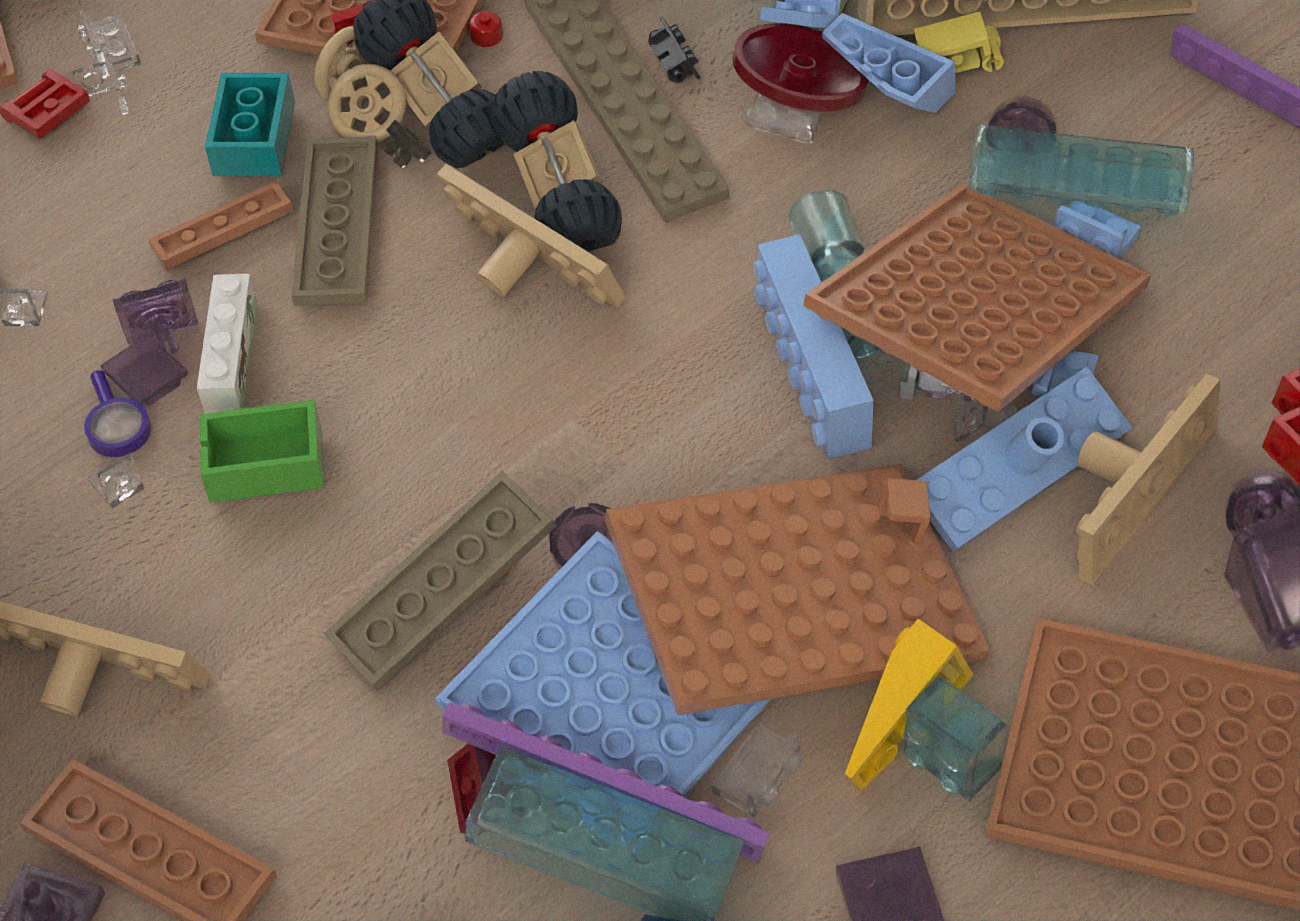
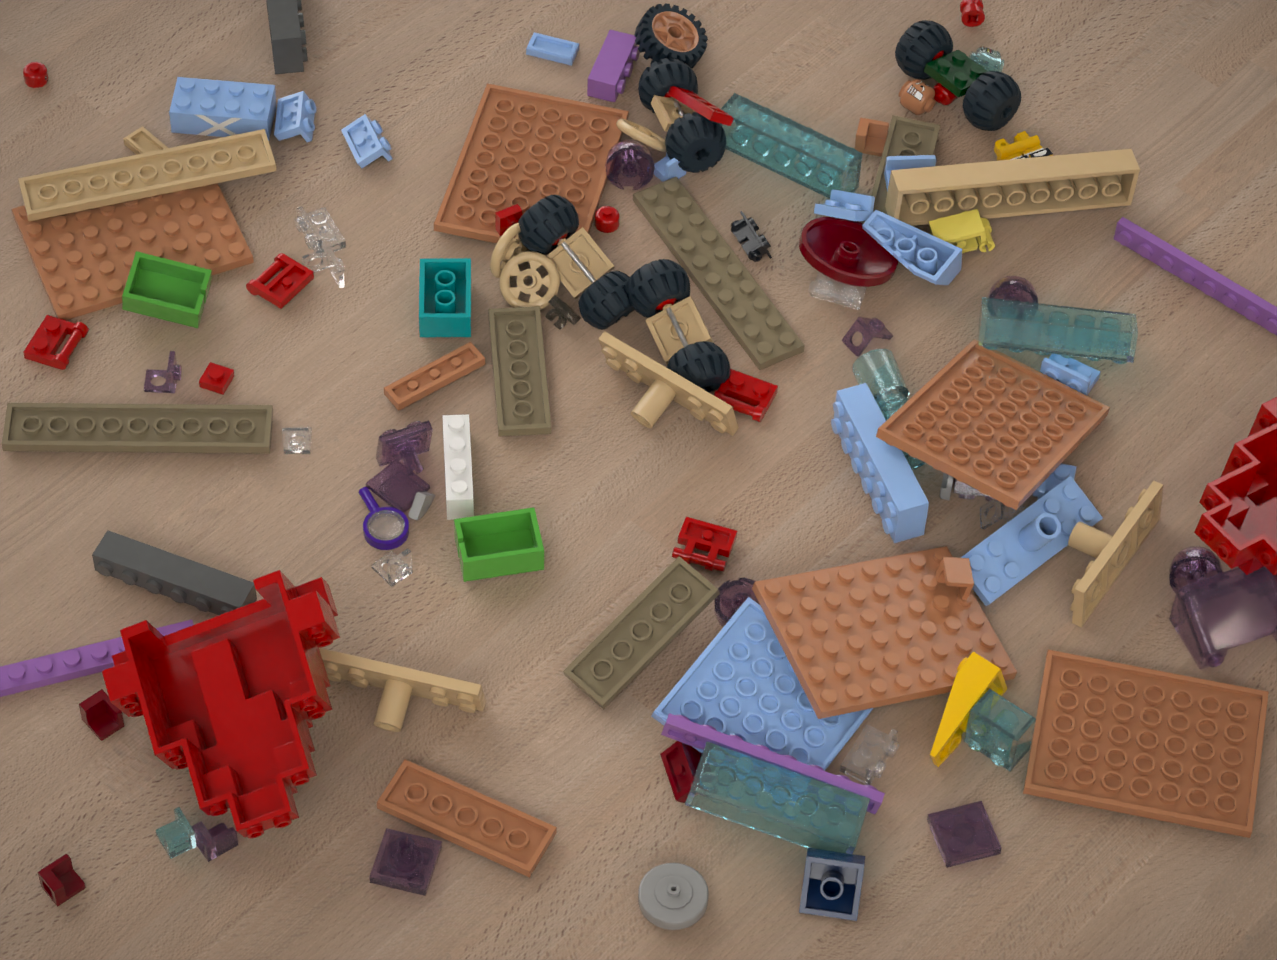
camera: 10 degrees left, 0 degrees up
(170, 395) = (421, 504): none -> light grey tile
(557, 446) = (705, 537): none -> red plate
(645, 248) = (748, 390): none -> red plate
(818, 167) = (869, 329): none -> bracket

